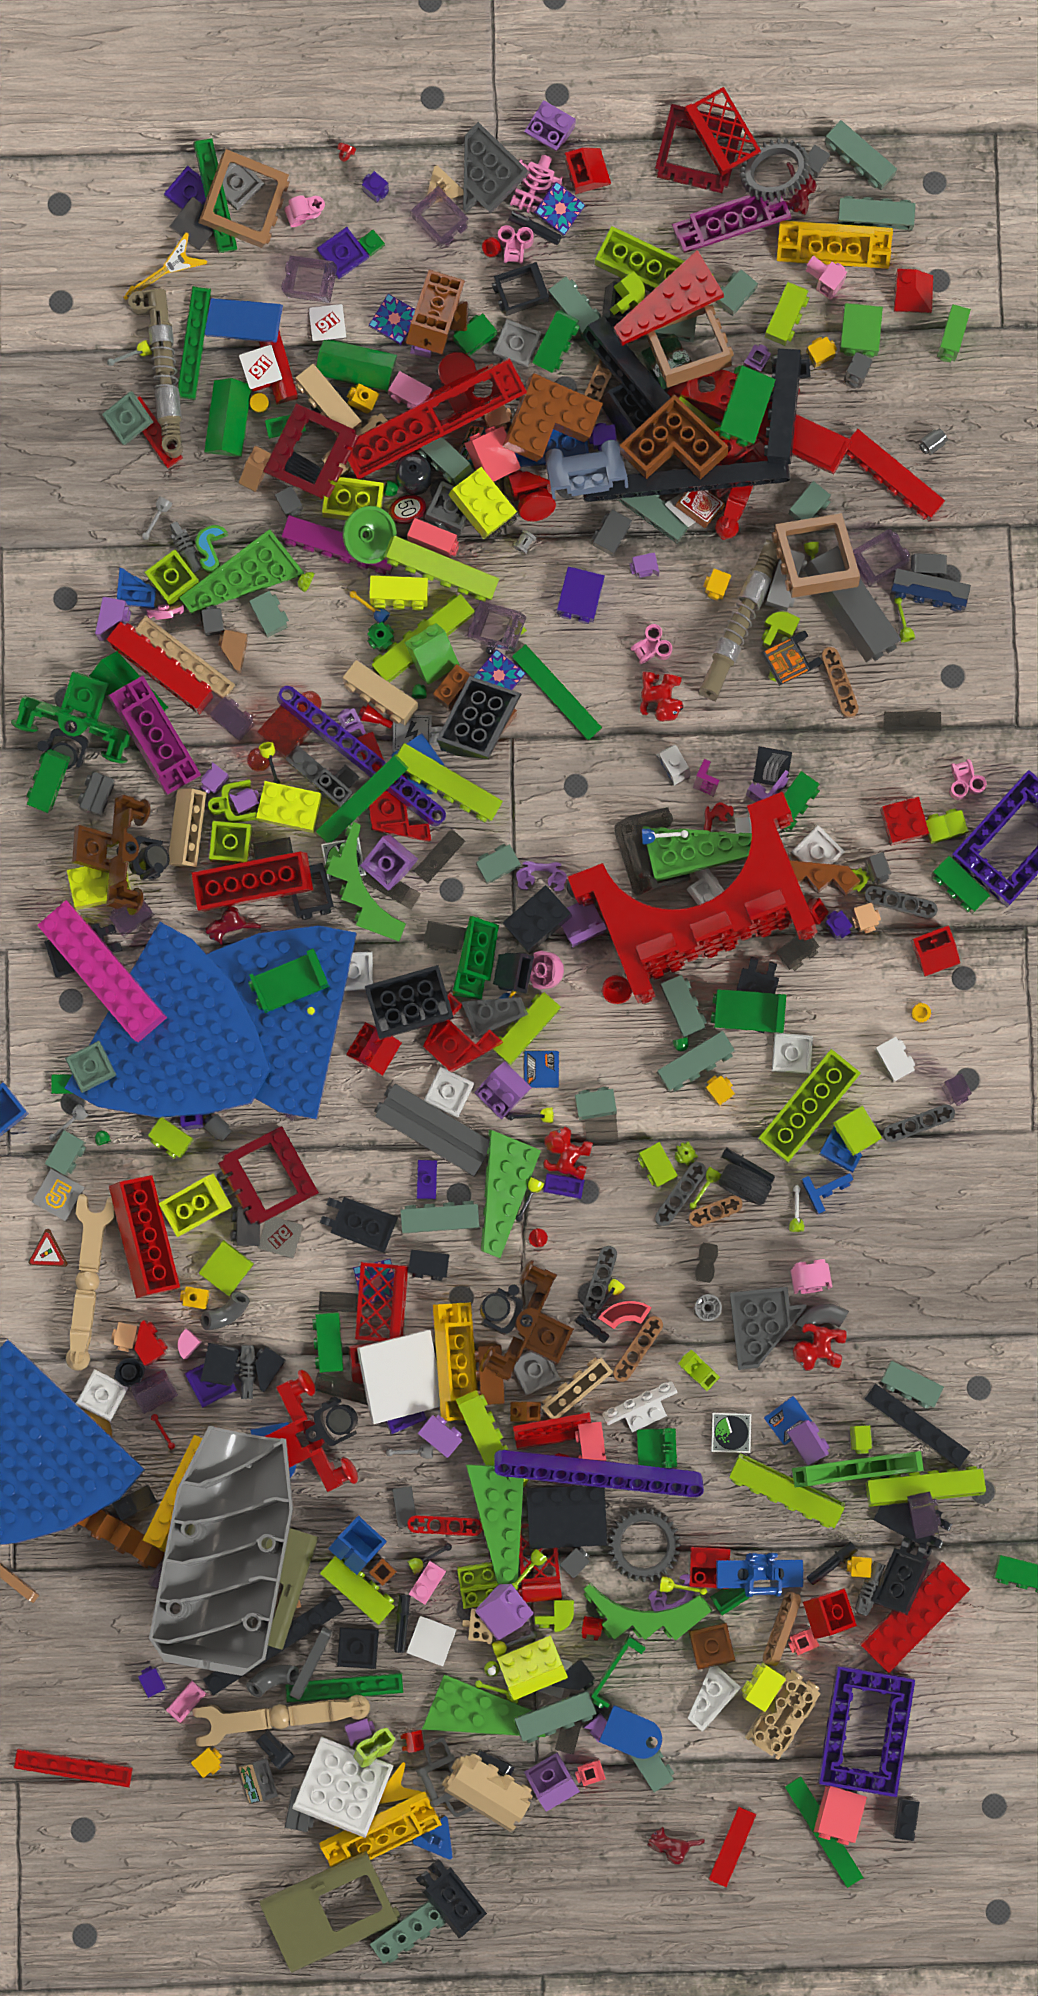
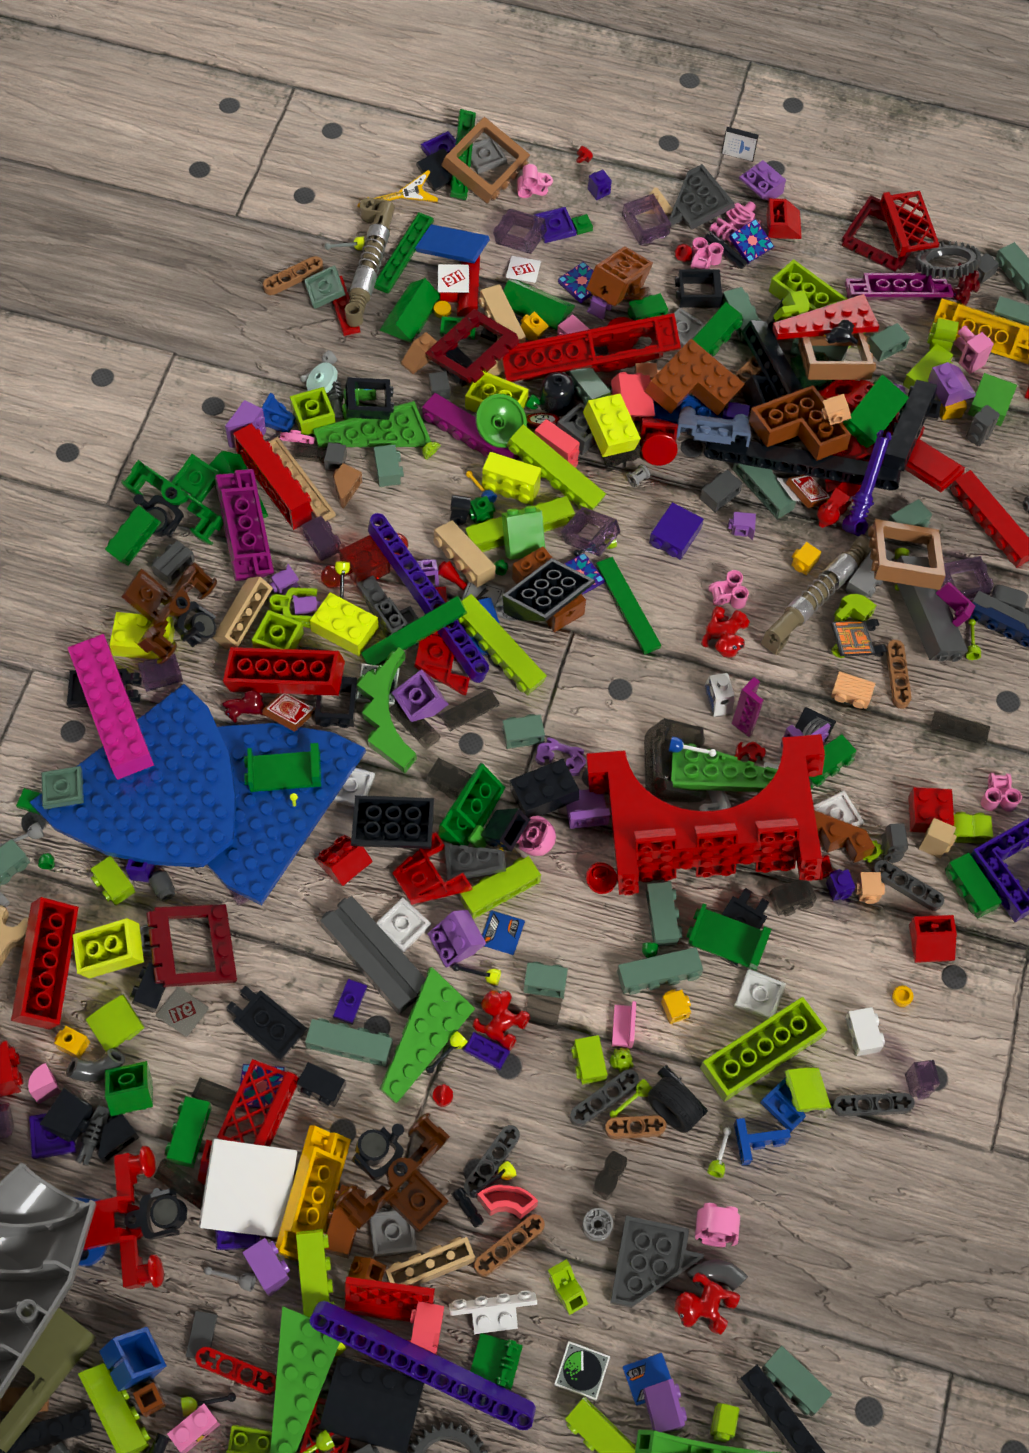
camera: 15 degrees right, 20 degrees down
(85, 410) = (294, 277): none -> medium nougat beam
(166, 534) = (322, 376): none -> light aqua plate
(208, 557) = (368, 412): none -> black window
(264, 1323) = (128, 1088): none -> green brick
(270, 917) = (289, 711): none -> tile
(359, 644) = (459, 509): none -> black piece
(489, 988) = (476, 838): none -> bright green piece
(512, 83) = (740, 144): none -> white tile
(678, 1122) = (624, 1025): none -> bright pink panel
(687, 320) = (841, 333): none -> black animal
(706, 425) = (836, 409): none -> light nougat brick
(758, 506) = (856, 522): none -> dark purple piece
(791, 269) = (943, 333): none -> lime brick
(800, 716) = (853, 690): none -> light nougat brick
(815, 332) = (951, 384): none -> medium lavender slope
(884, 592) = (957, 601): none -> magenta bracket
(917, 850) = (938, 838): none -> tan piece

